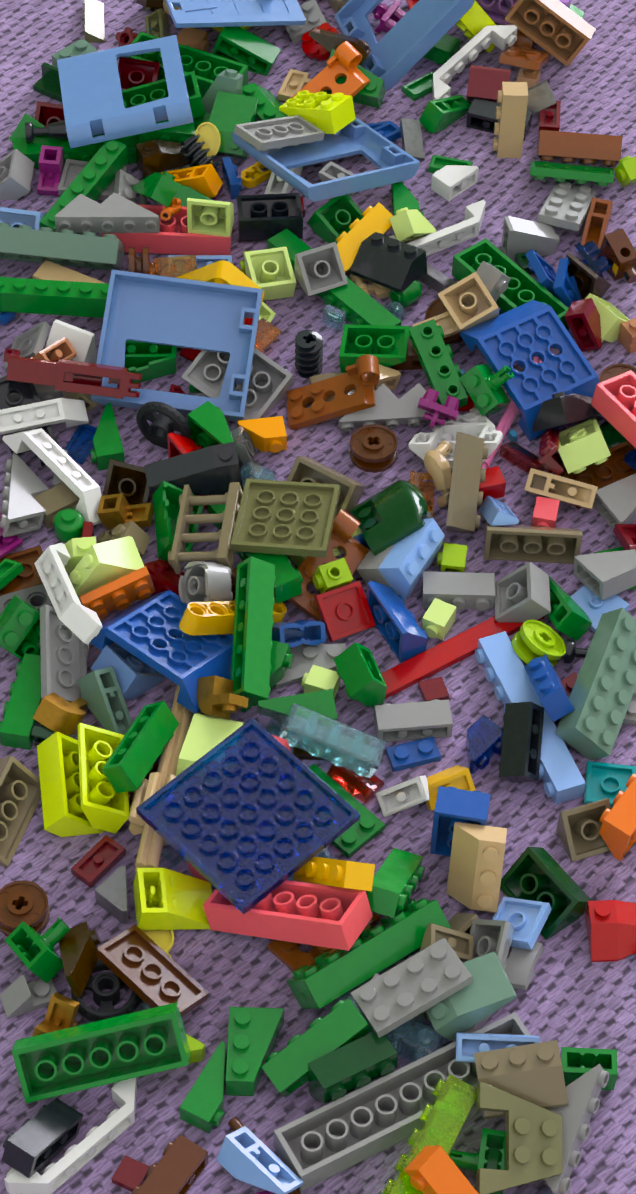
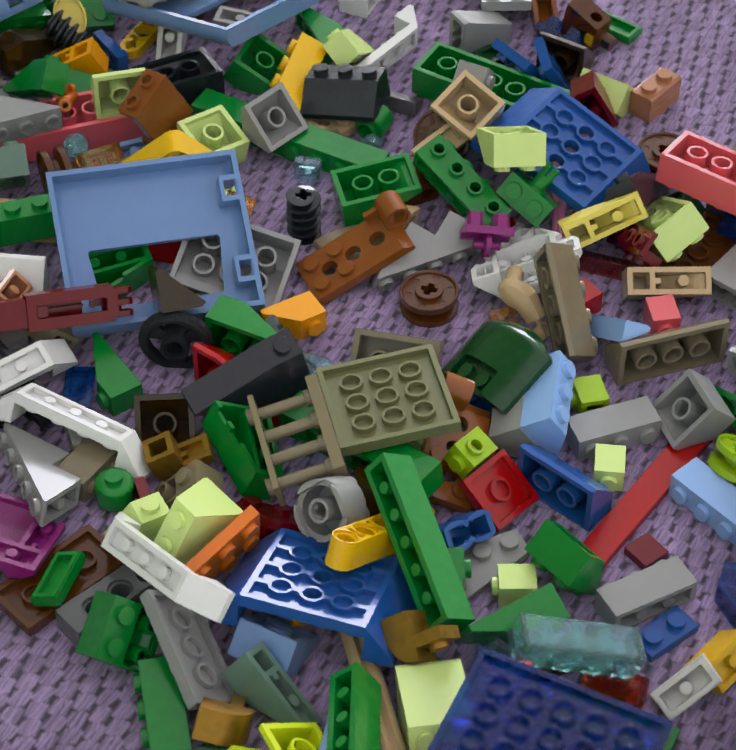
camera: 20 degrees left, 5 degrees down
(163, 249) = (76, 144): none -> clear light blue hinge
(169, 389) = (169, 294): none -> dark brown slope
(230, 236) = (155, 105): none -> dark orange panel
(482, 346) = (512, 147): none -> yellowish green slope
(531, 424) = (604, 218): none -> light yellow slope

